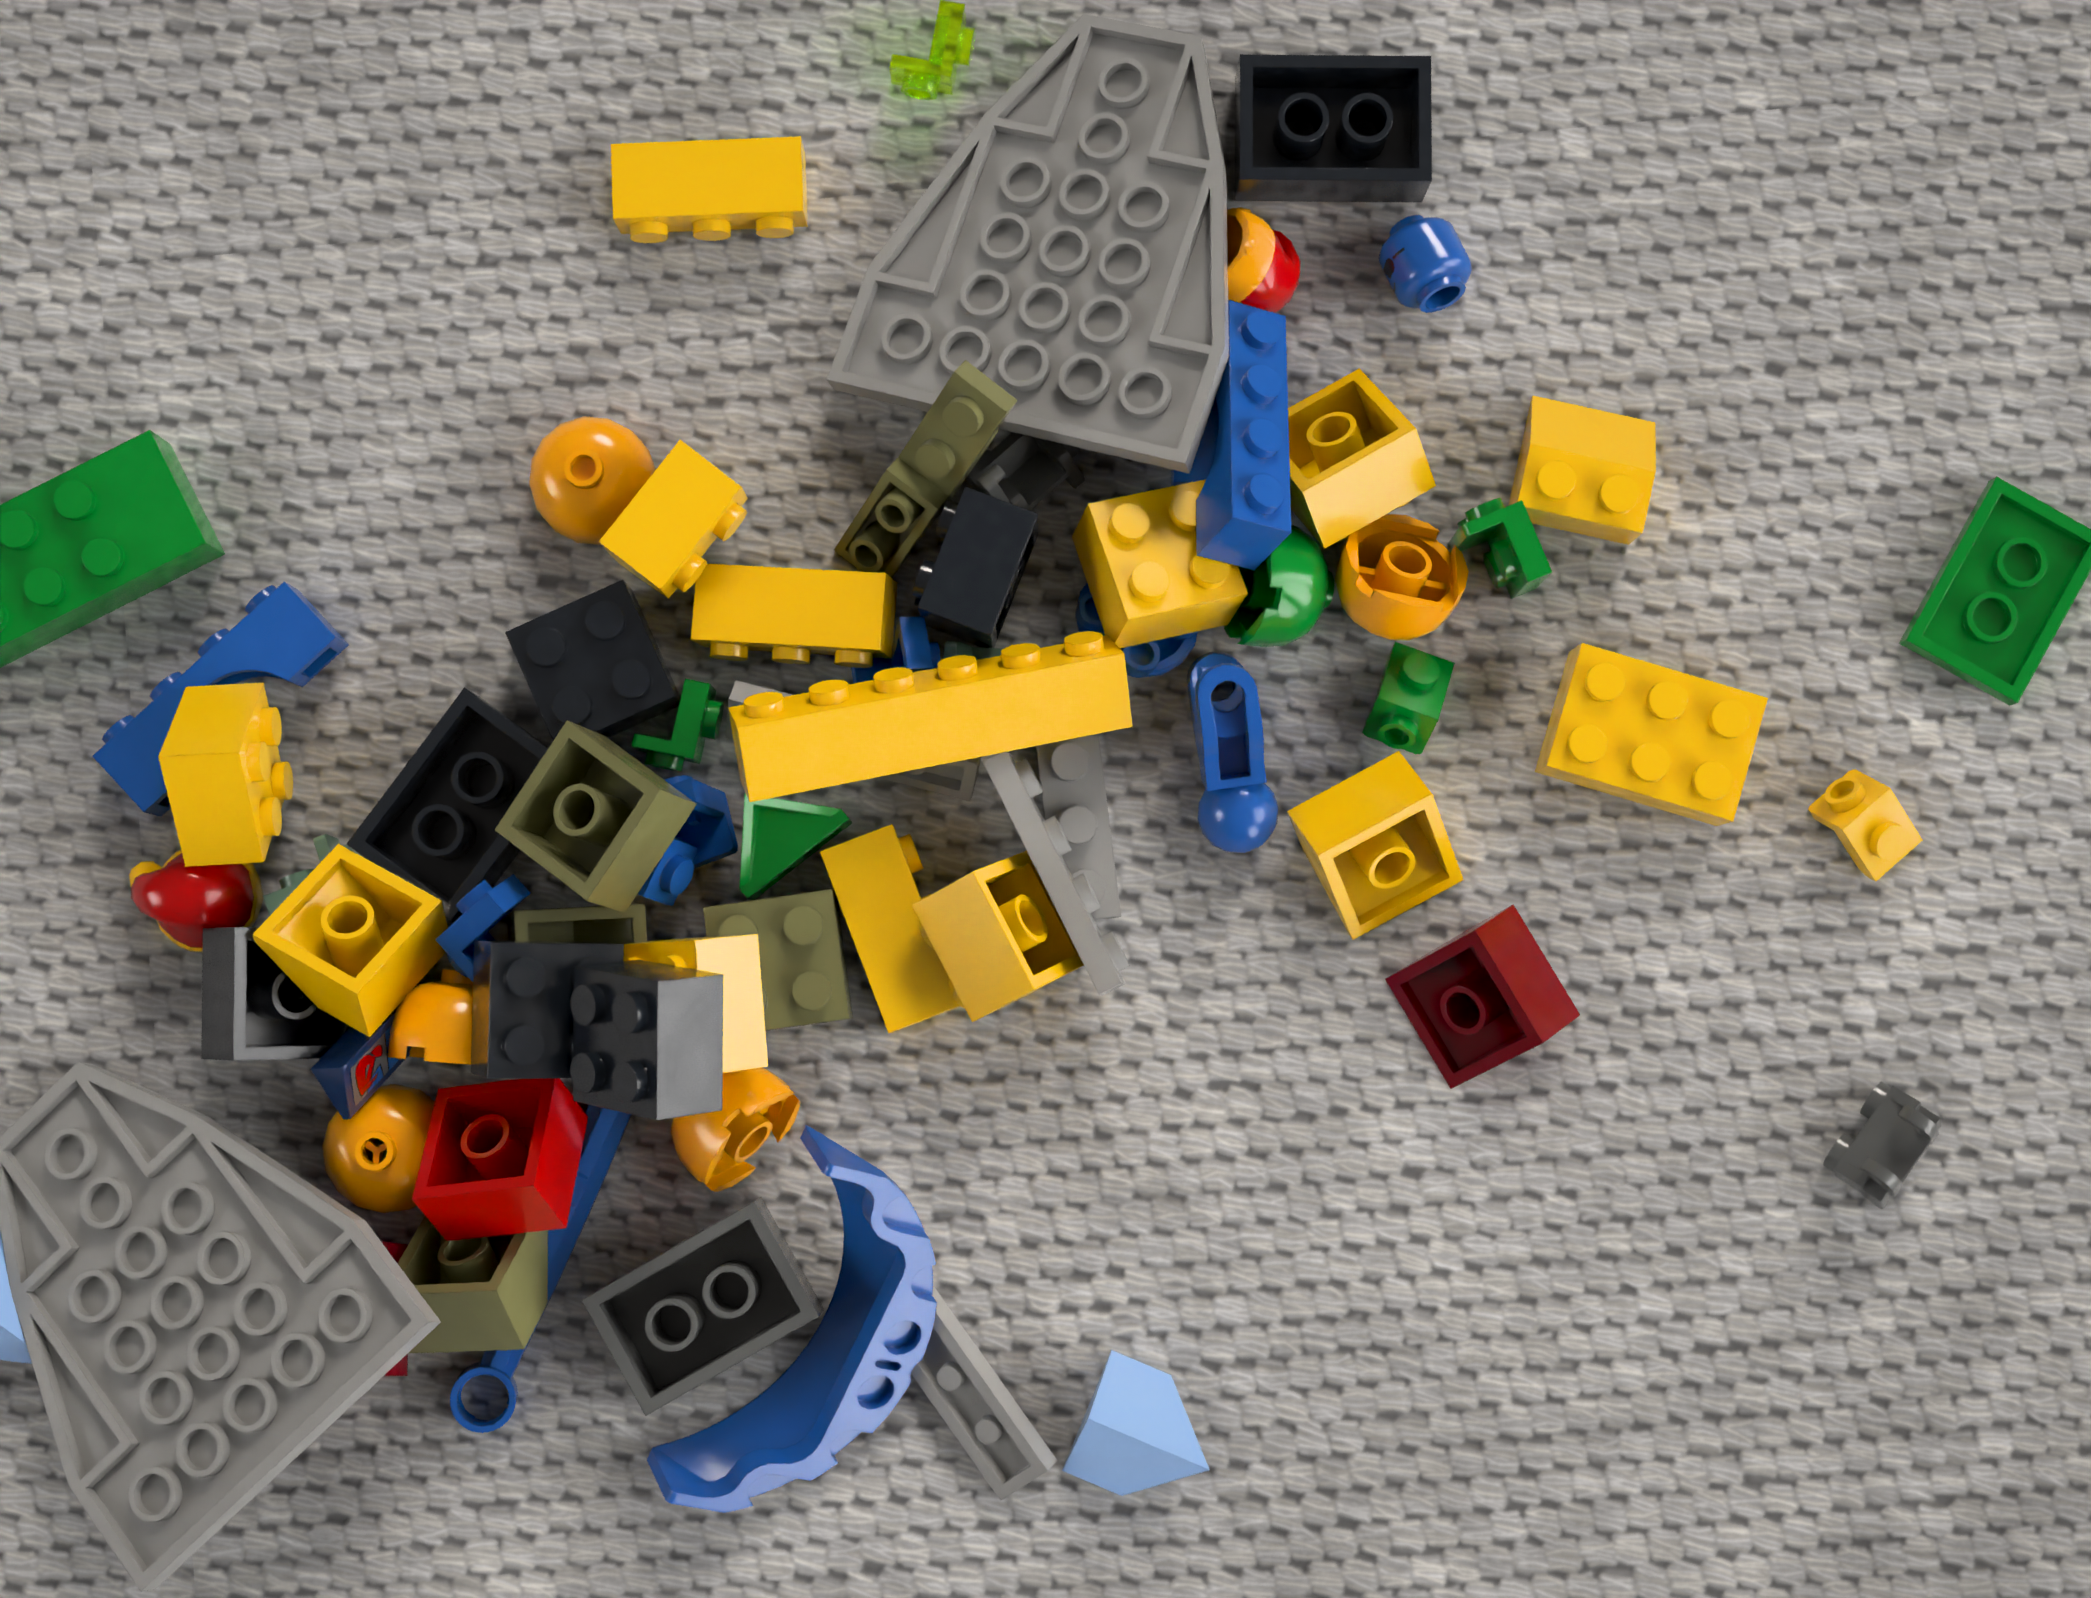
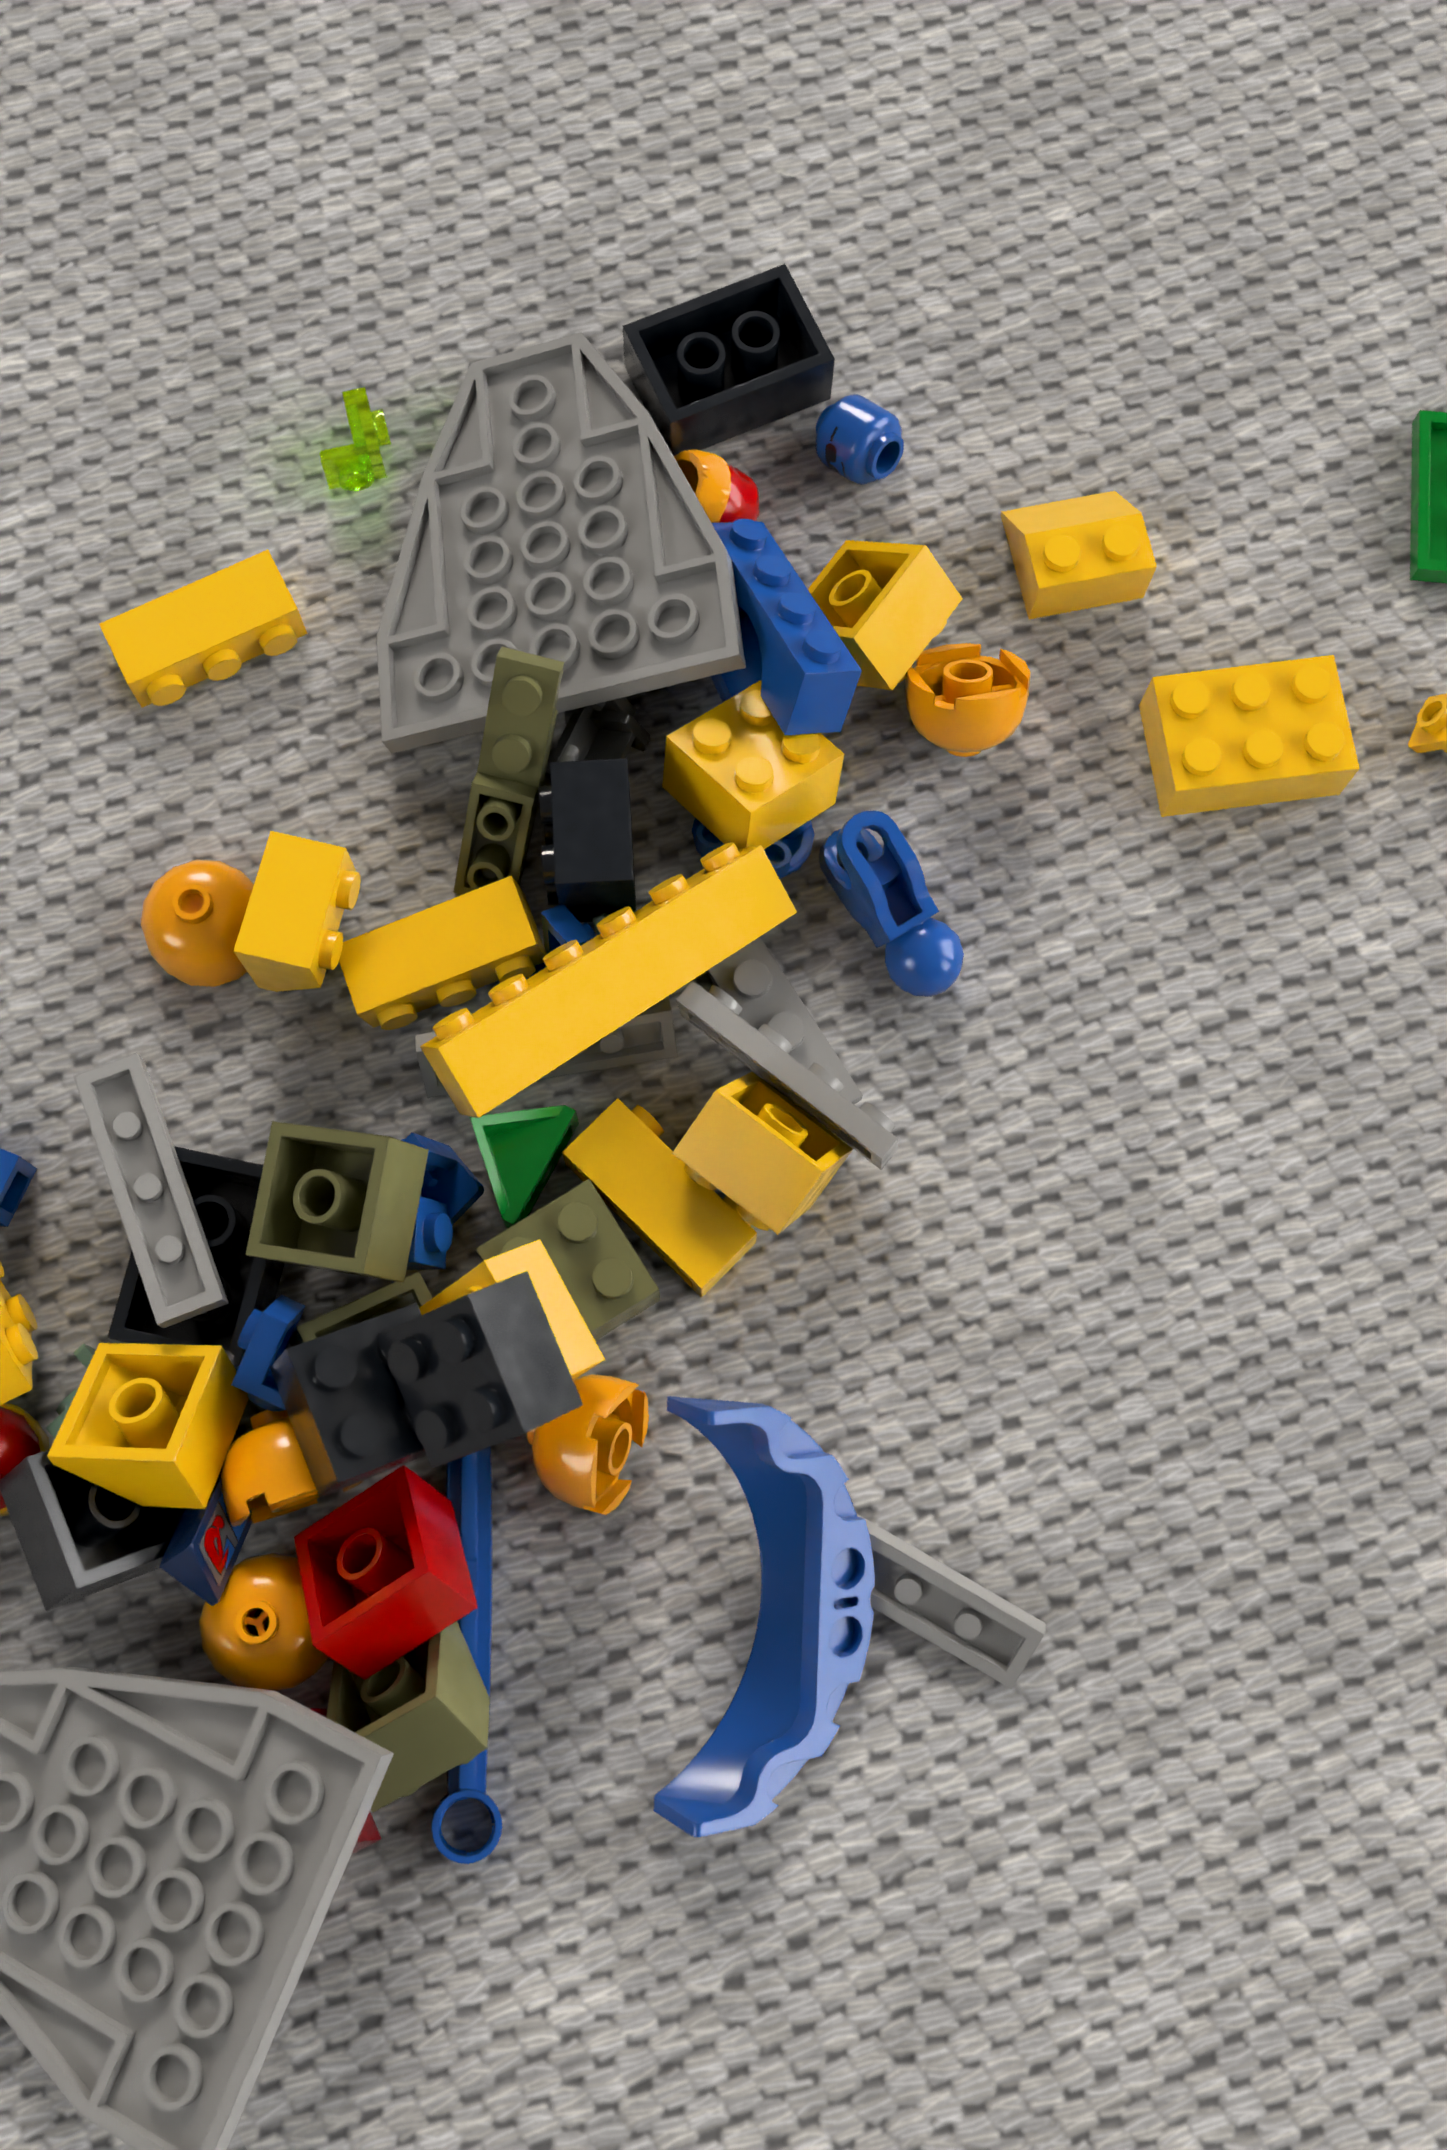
camera: 25 degrees left, 10 degrees down
(436, 729) = (150, 1190): none -> light grey plate
(595, 664) = (278, 1071): black brick -> none
(695, 721) = (394, 1090): green bracket -> none
(703, 1306) = (641, 1630): dark grey brick -> none
(1134, 1431) = (1104, 1564): light blue slope -> none
(1283, 594) = (877, 751): green cylinder -> none
(1376, 844) = (1059, 930): yellow slope -> none
(1408, 699) = (1024, 800): green bracket -> none
(1483, 997) = (1218, 1023): dark red slope -> none
(1515, 551) = (1049, 624): green bracket -> none

